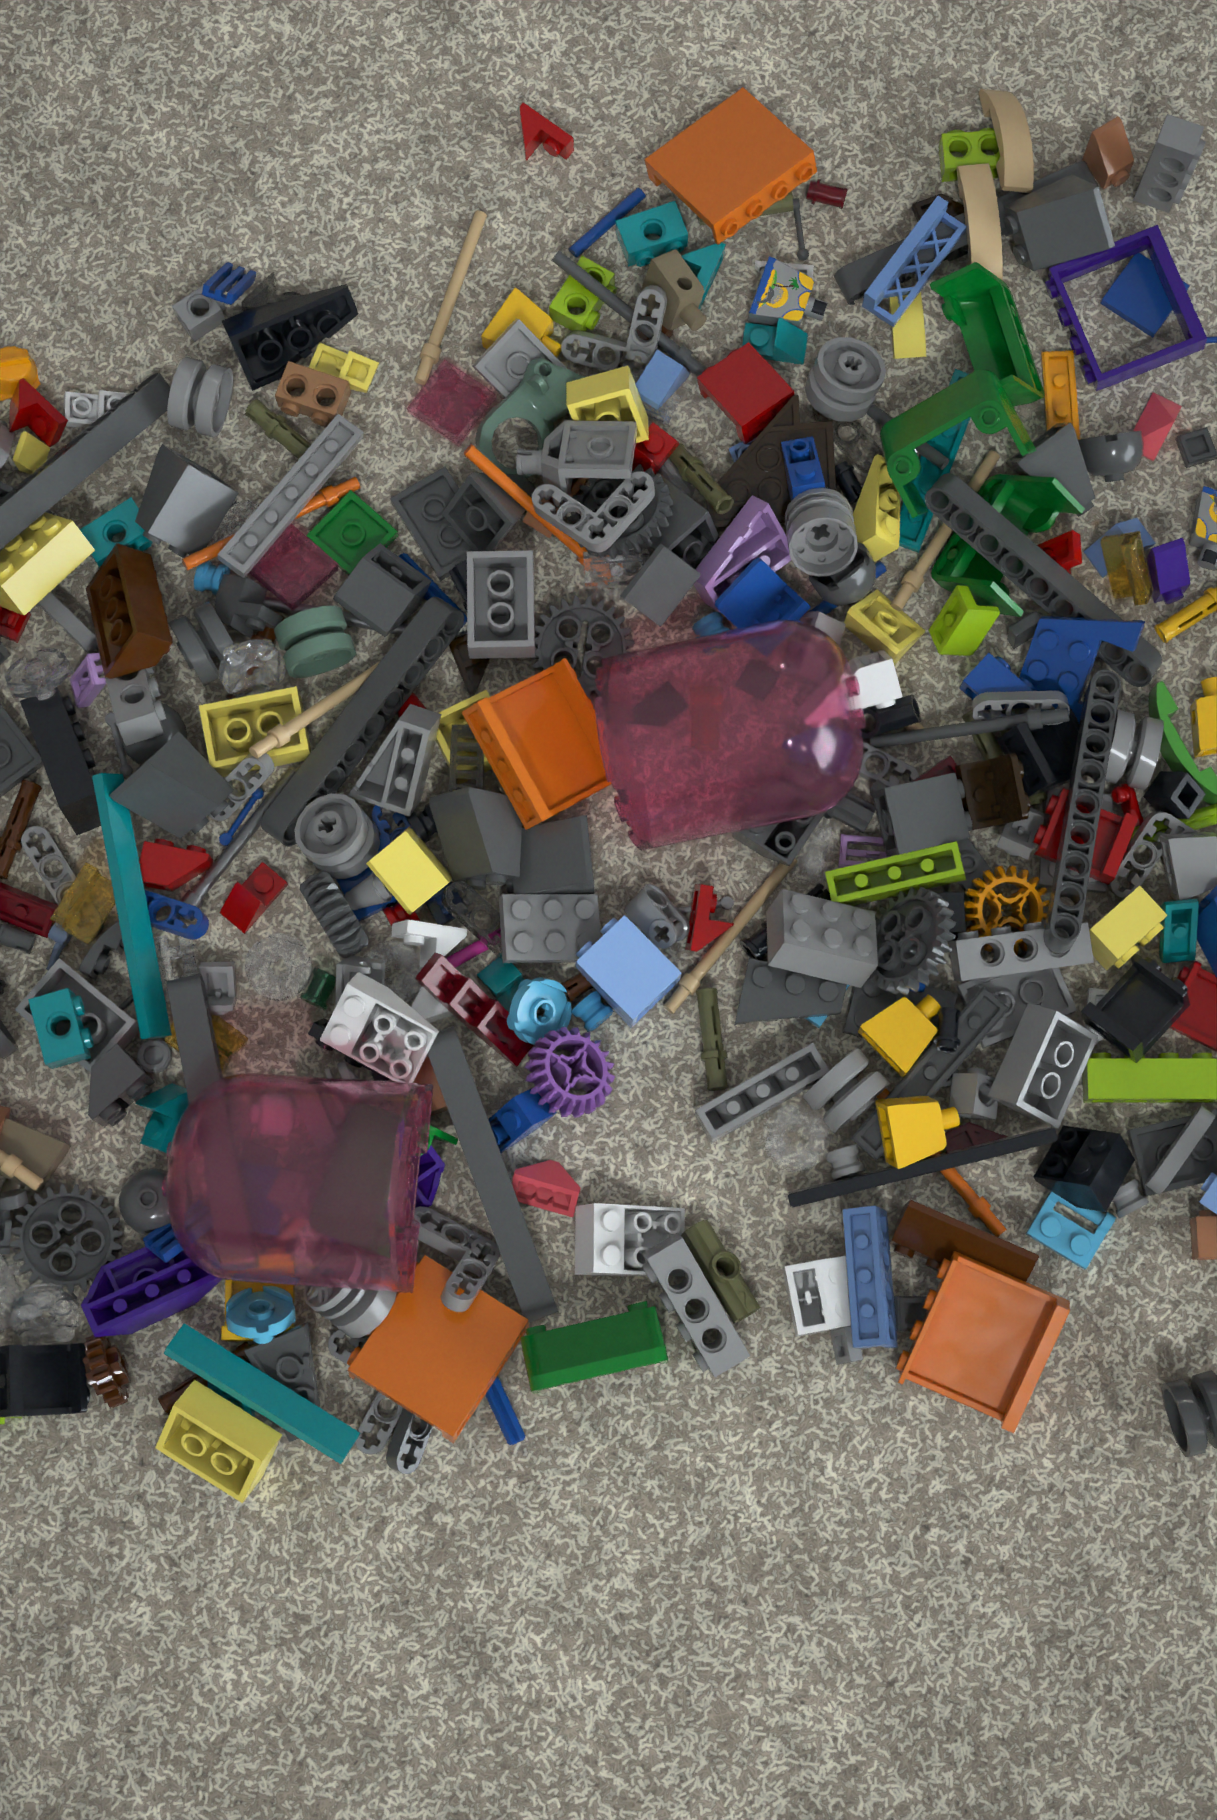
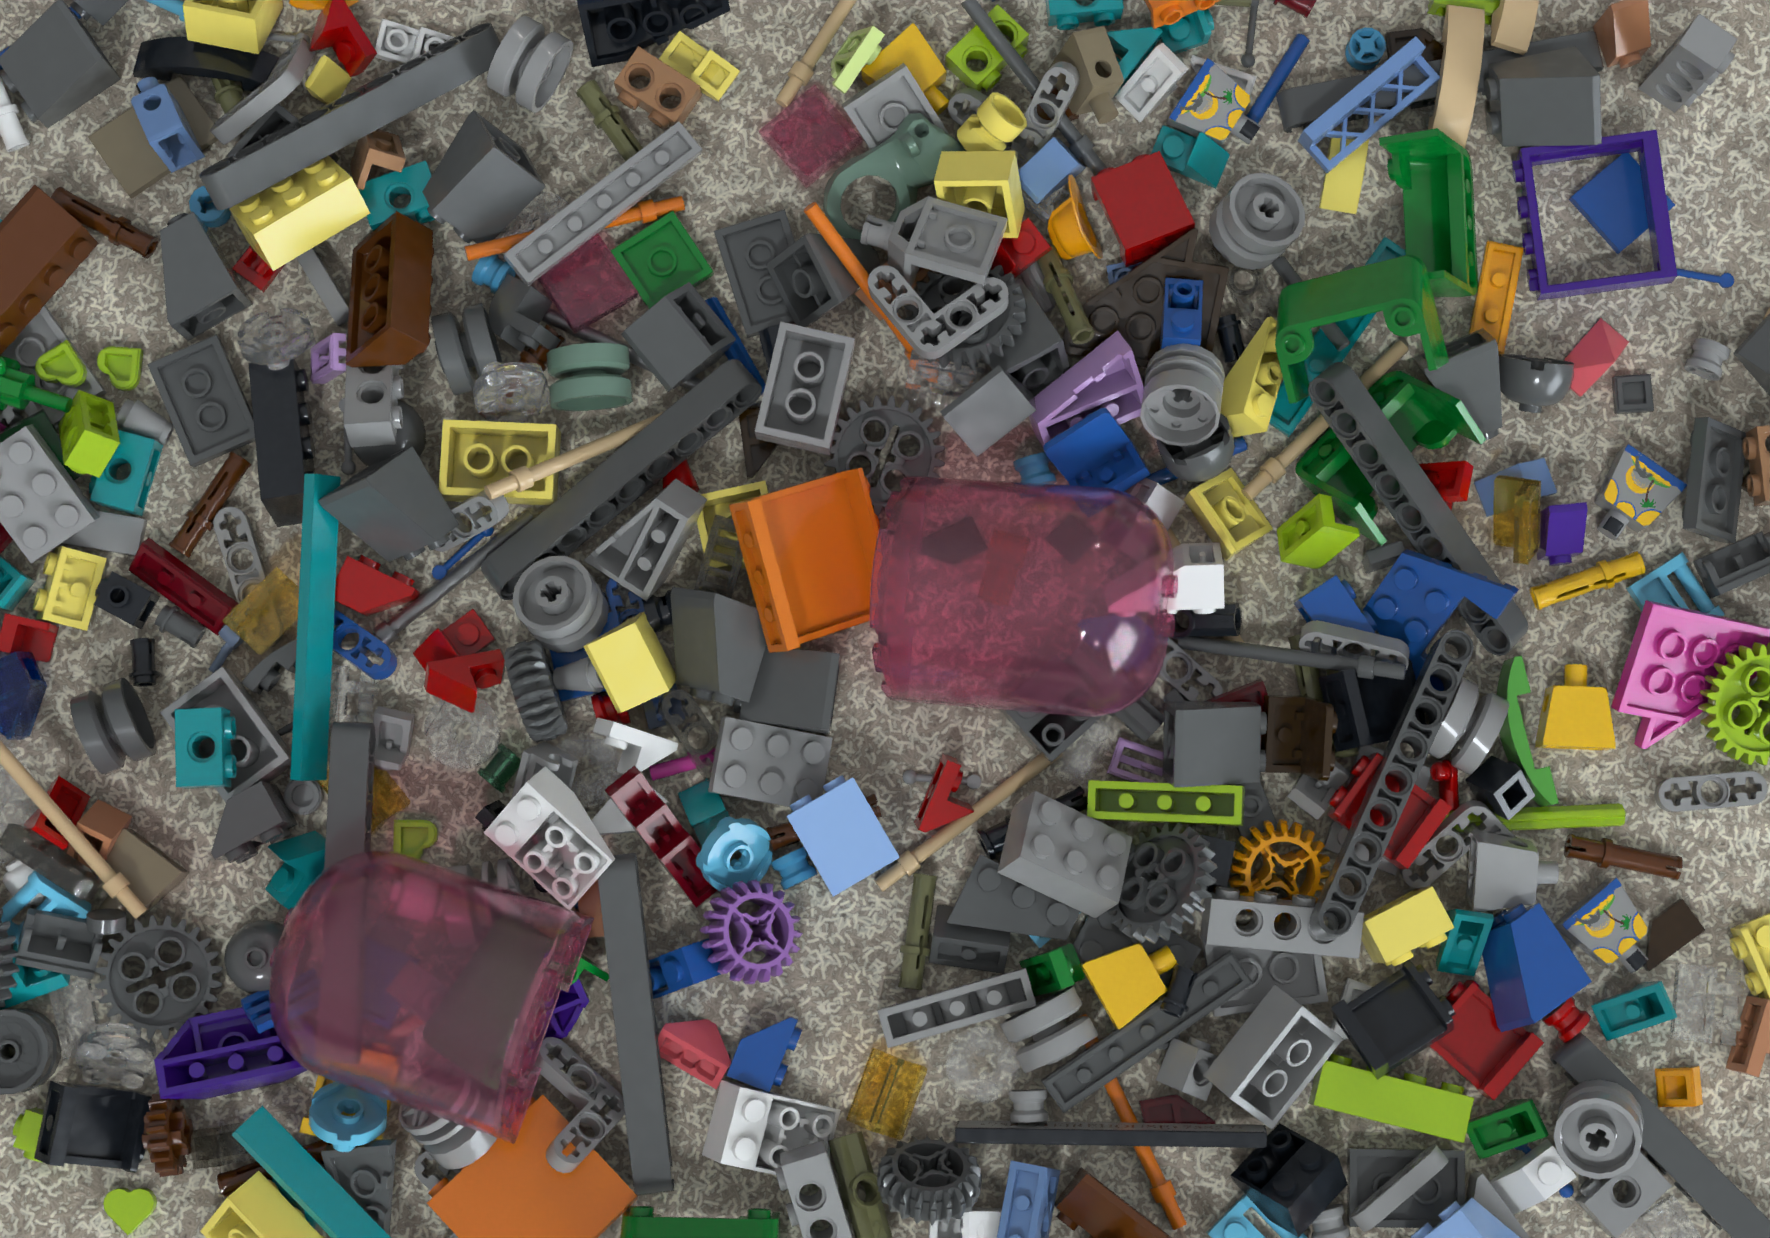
camera: 10 degrees right, 5 degrees up
(87, 496) = (378, 149): none -> medium nougat panel
(88, 1446) = (129, 1207): none -> lime tile
(155, 1372) = (217, 1147): none -> clear smoke slope
(259, 1062) = (414, 836): none -> lime tile
(266, 919) = (459, 677): none -> red slope
(473, 321) = (857, 50): none -> yellowish green wing
(604, 1174) = (761, 1055): none -> blue slope
(605, 351) = (995, 123): none -> light yellow wheel
(656, 915) = (889, 779): light grey piece -> none
(689, 423) = (1070, 227): none -> light orange piece
(721, 1183) = (886, 1094): none -> clear yellow panel
(727, 289) = (1152, 82): none -> white slope
(746, 242) = (1188, 32): none -> teal bracket
(758, 1039) = (967, 945): none -> dark grey panel
(776, 1243) = (929, 1180): none -> dark grey gear
(832, 261) = (1278, 78): none -> blue bar
(836, 1040) = (1053, 969): none -> green slope
(899, 214) = (1370, 42): none -> dark azure wheel
(913, 1128) = (1112, 1090): yellow torso -> none

